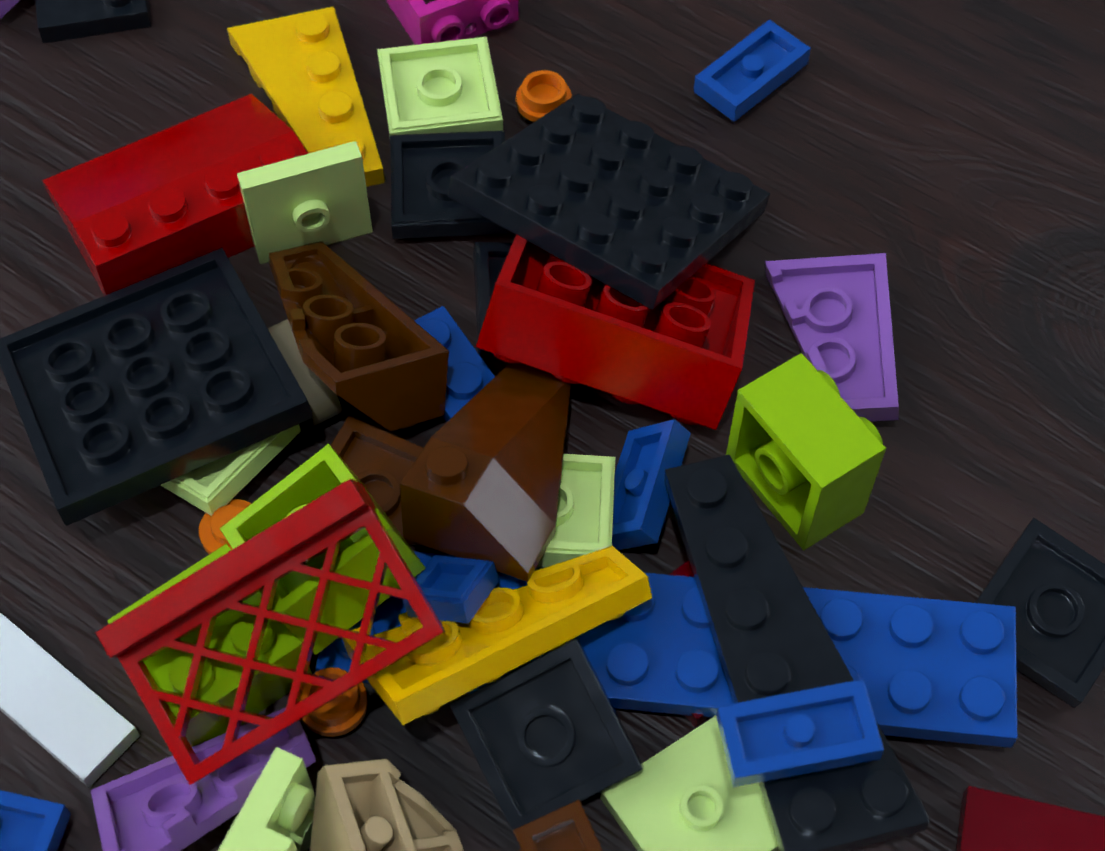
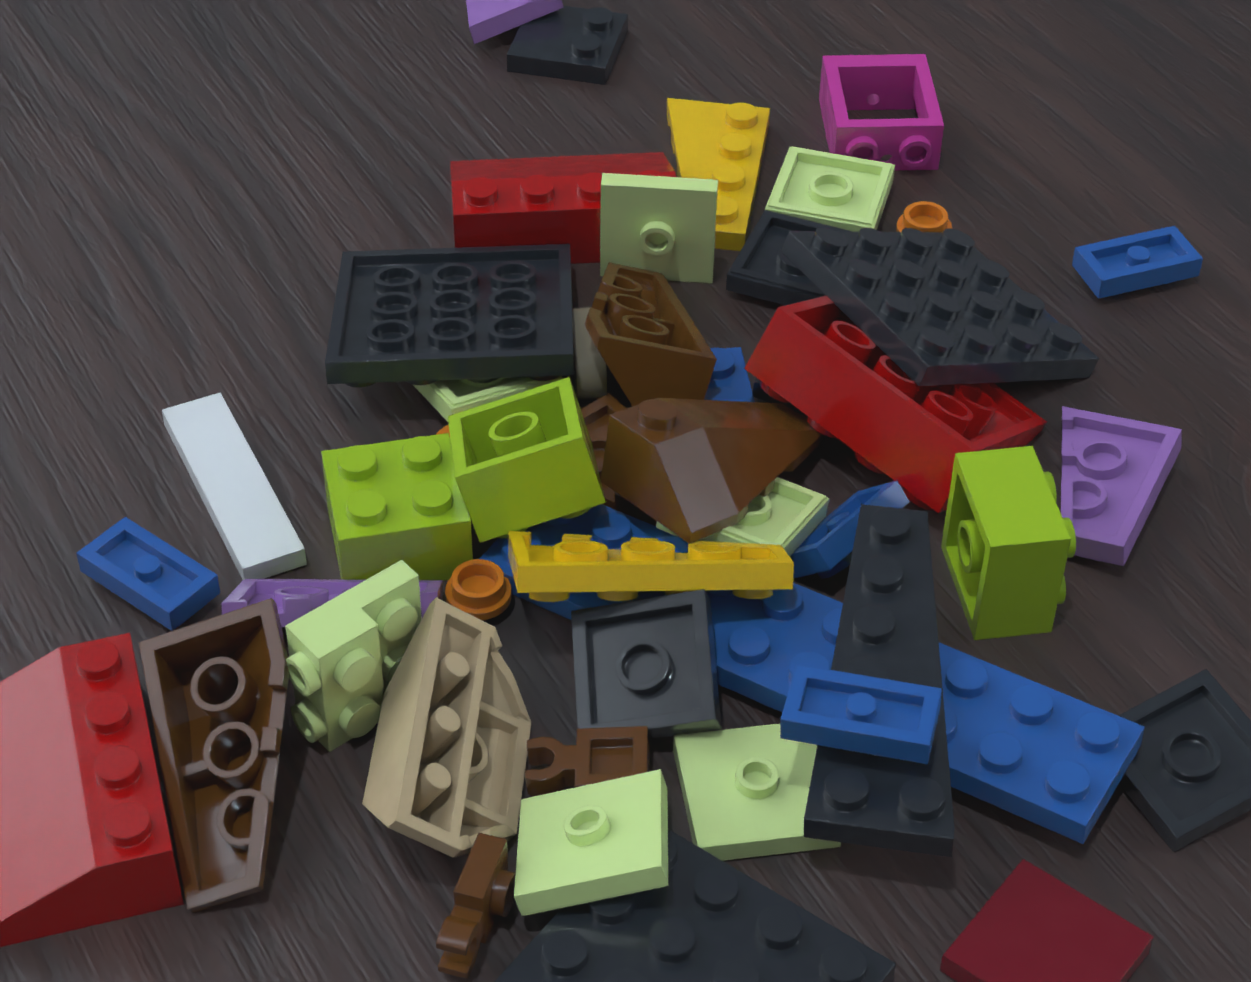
camera: 25 degrees right, 15 degrees down
(238, 576) = (451, 427): red fence -> none
(455, 587) = (619, 524): blue tile -> none

